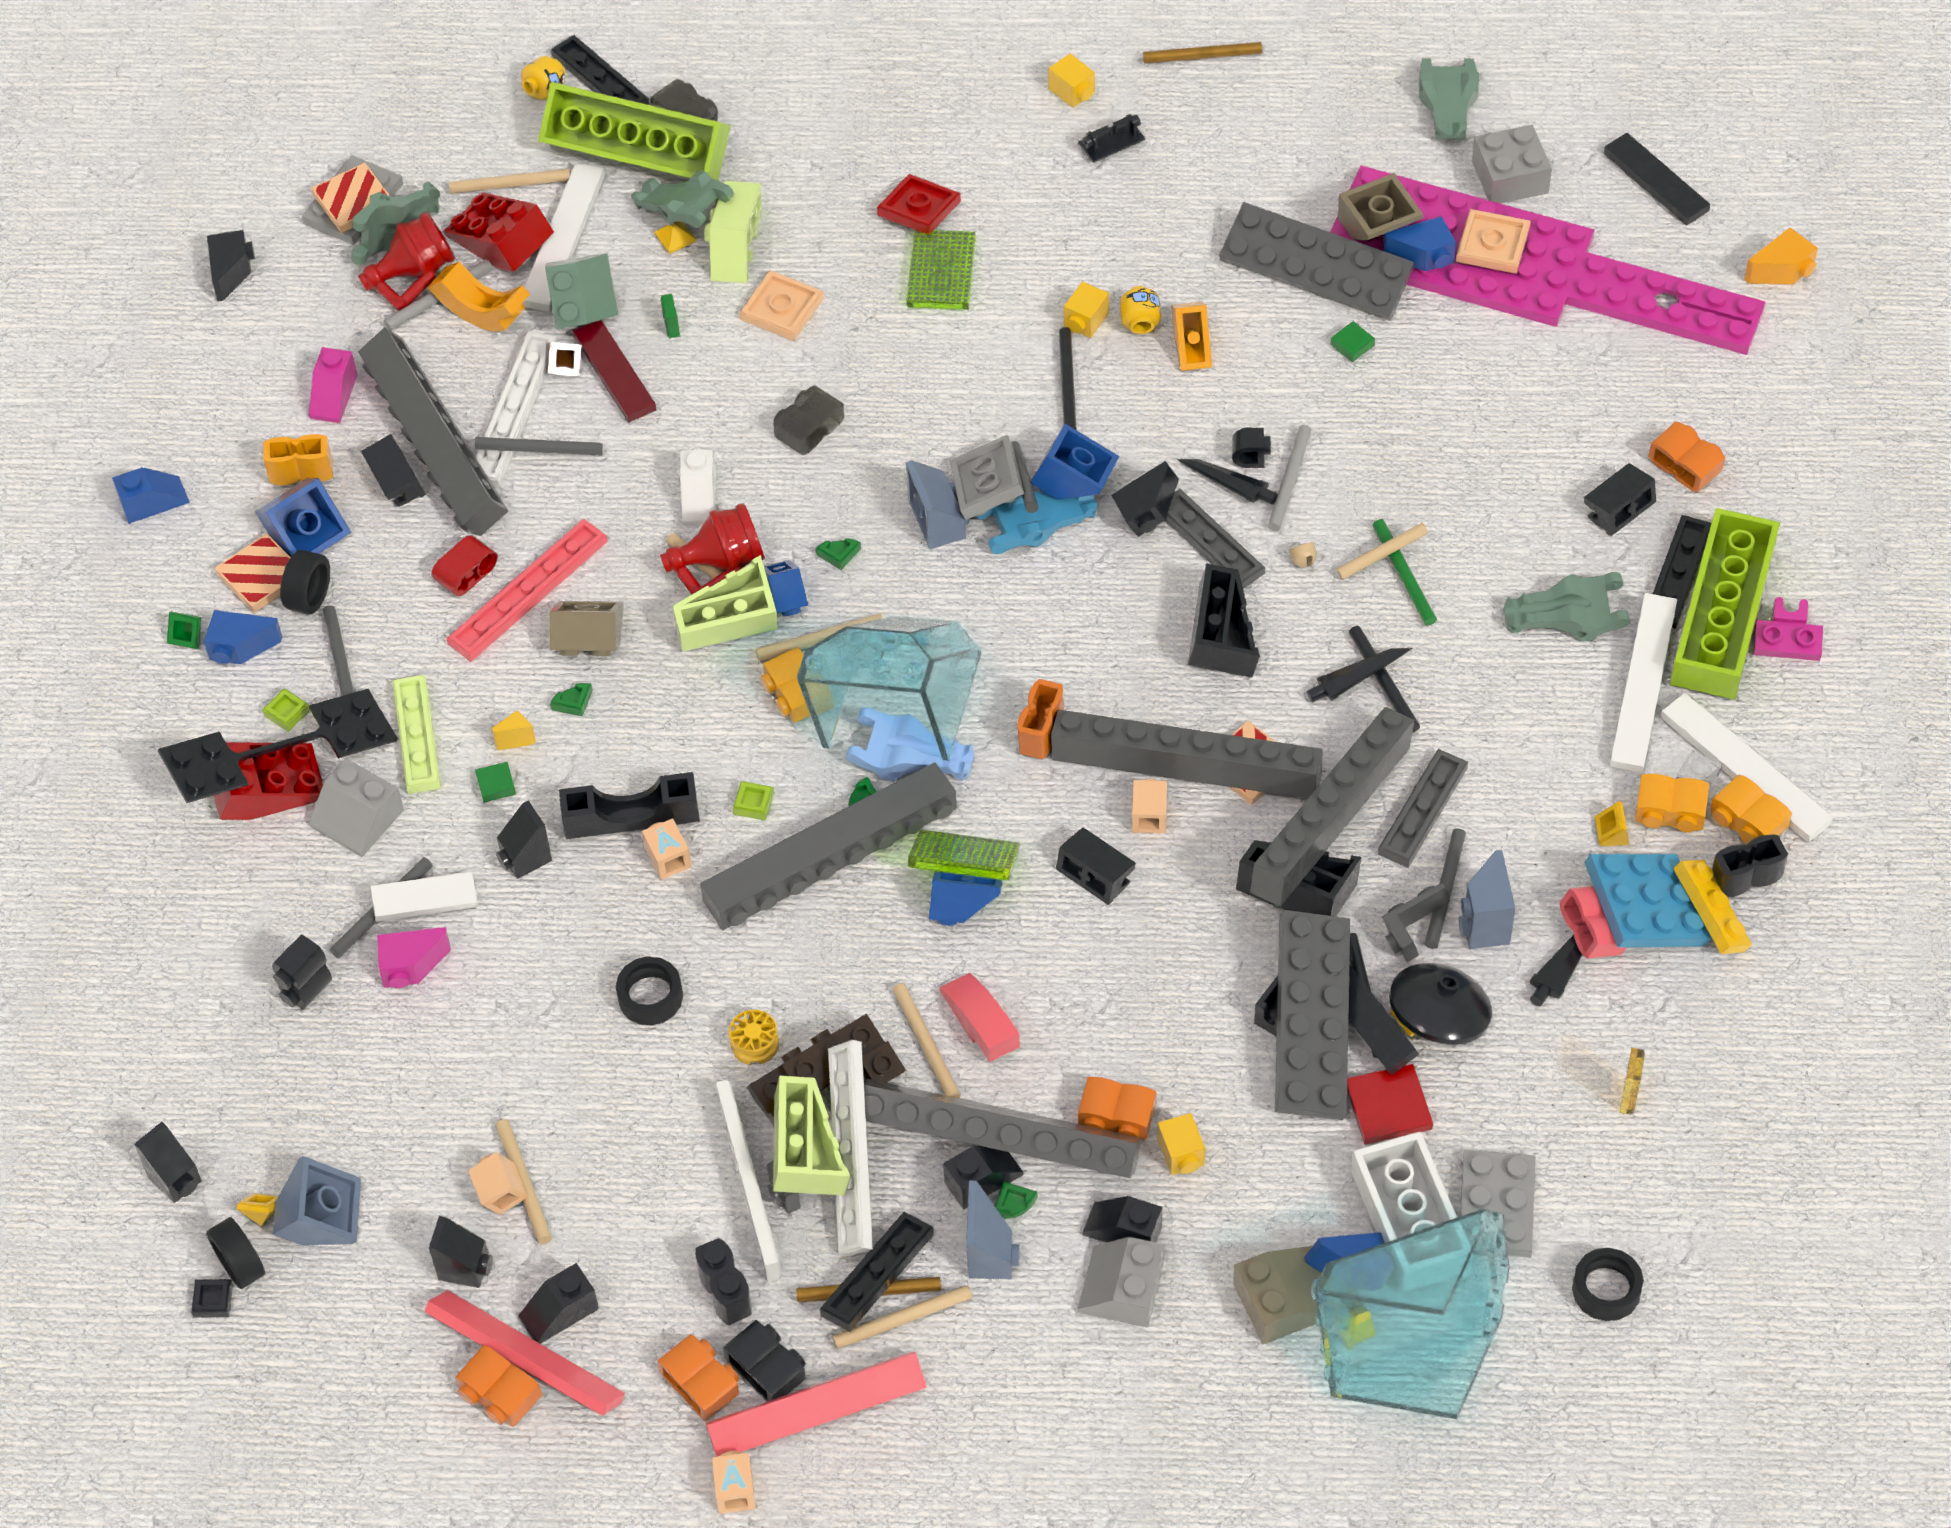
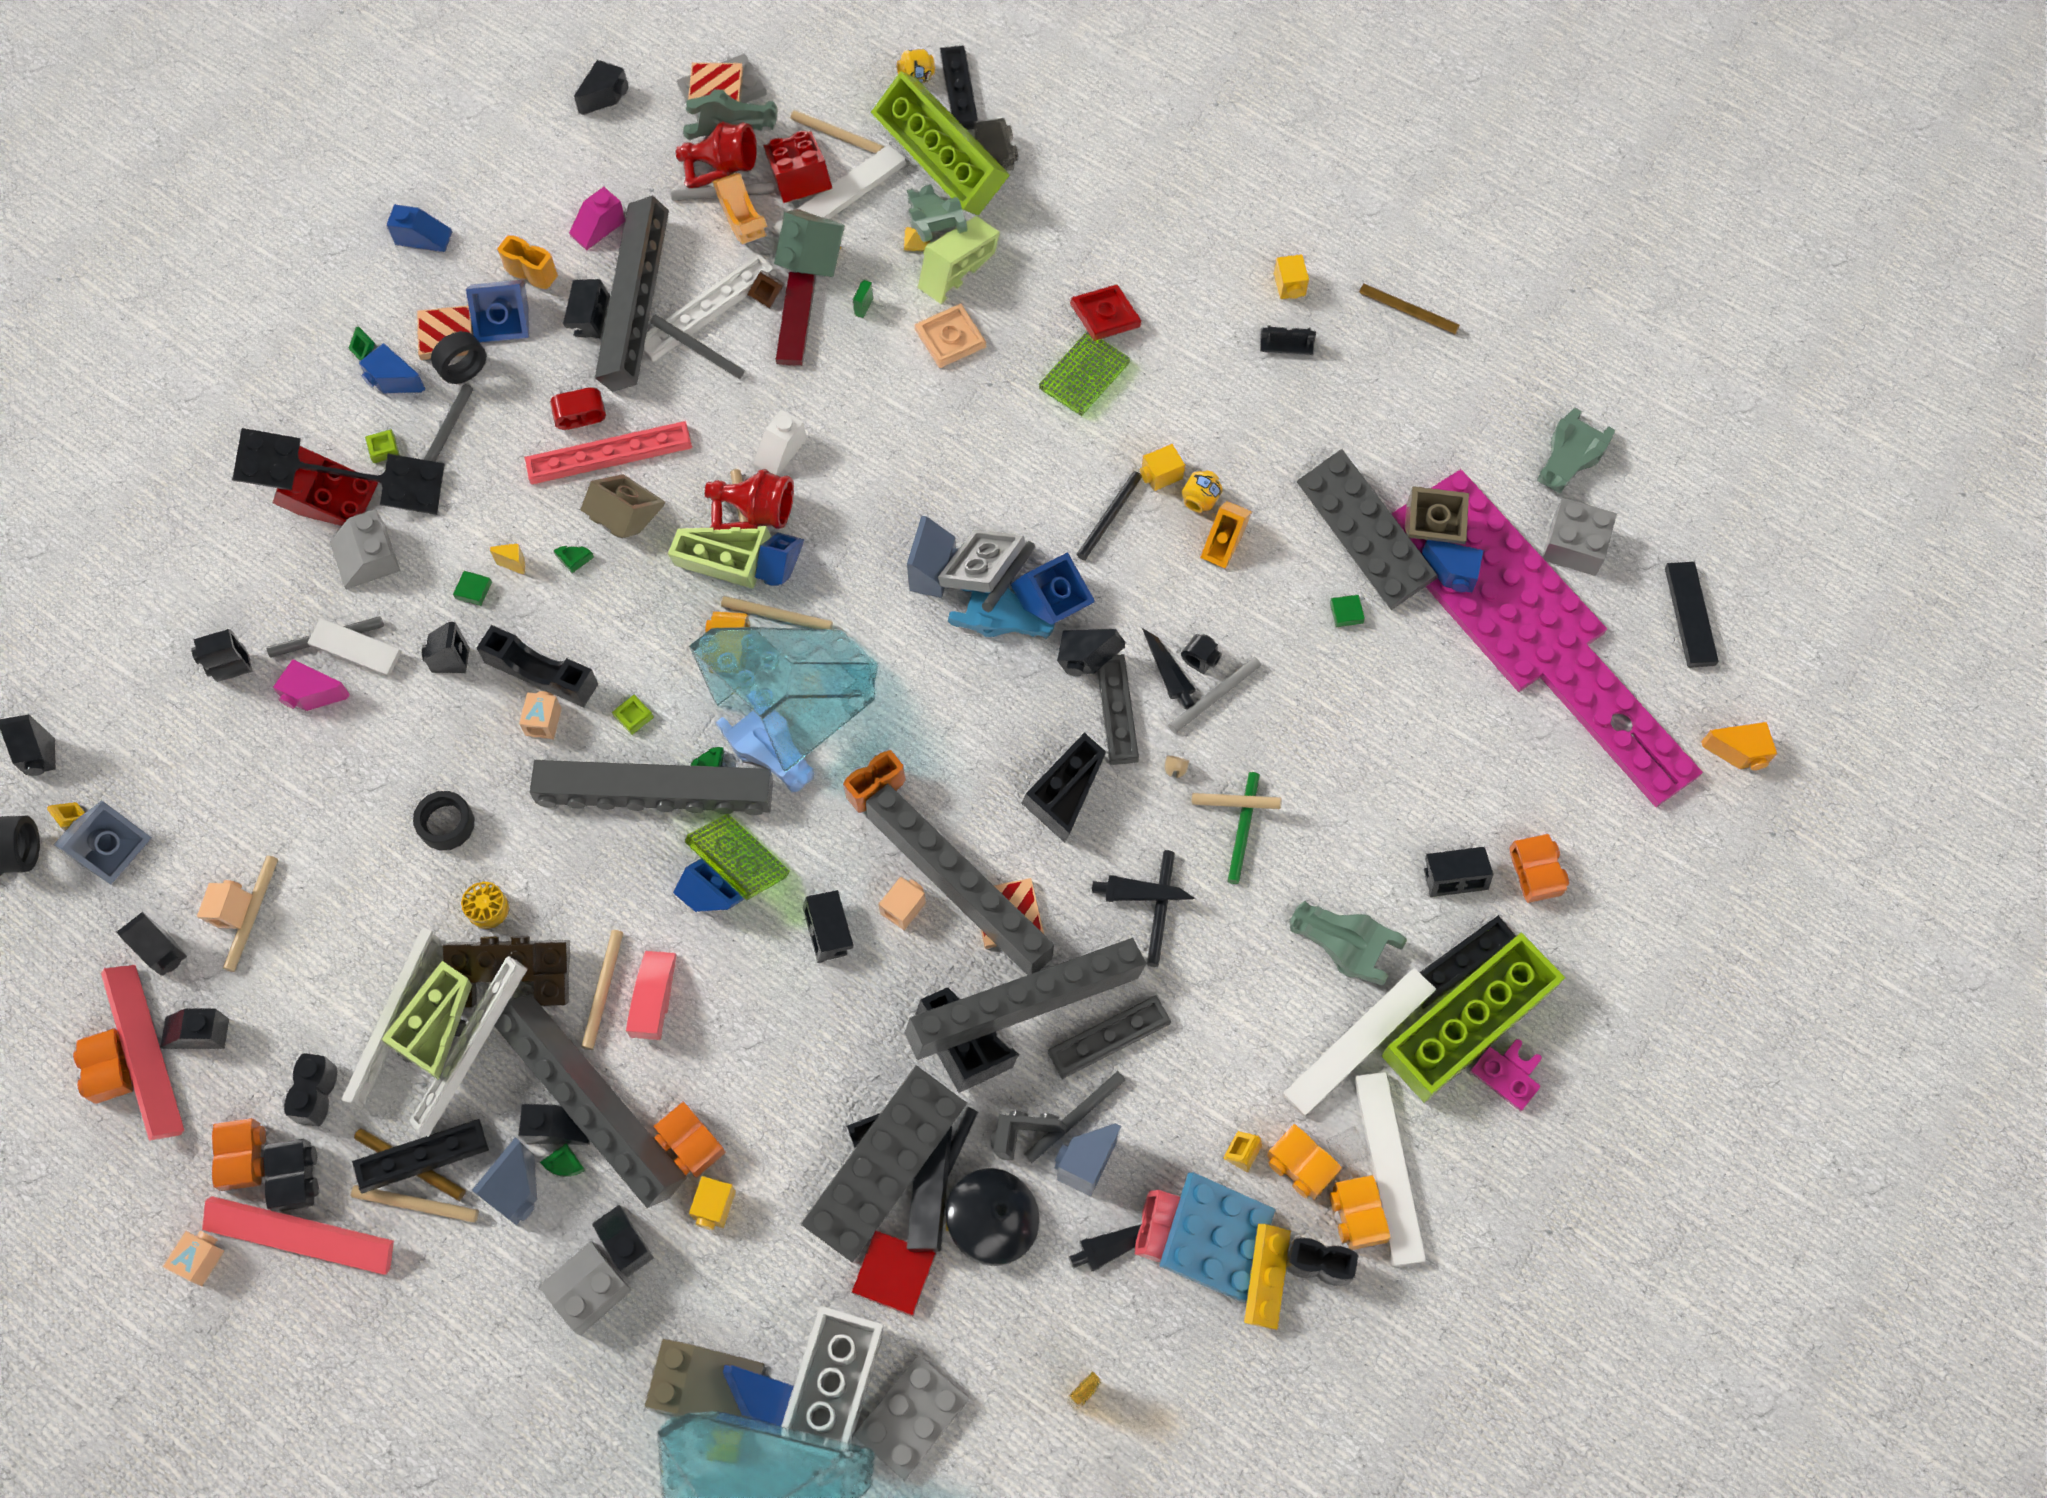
camera: 30 degrees right, 10 degrees up
(416, 734) = (450, 518): yellowish green tile -> none
(808, 419) = (896, 437): clear smoke brick -> none
(838, 552) = (842, 554): green tile -> none
(1493, 241) = (1515, 593): light nougat tile -> none

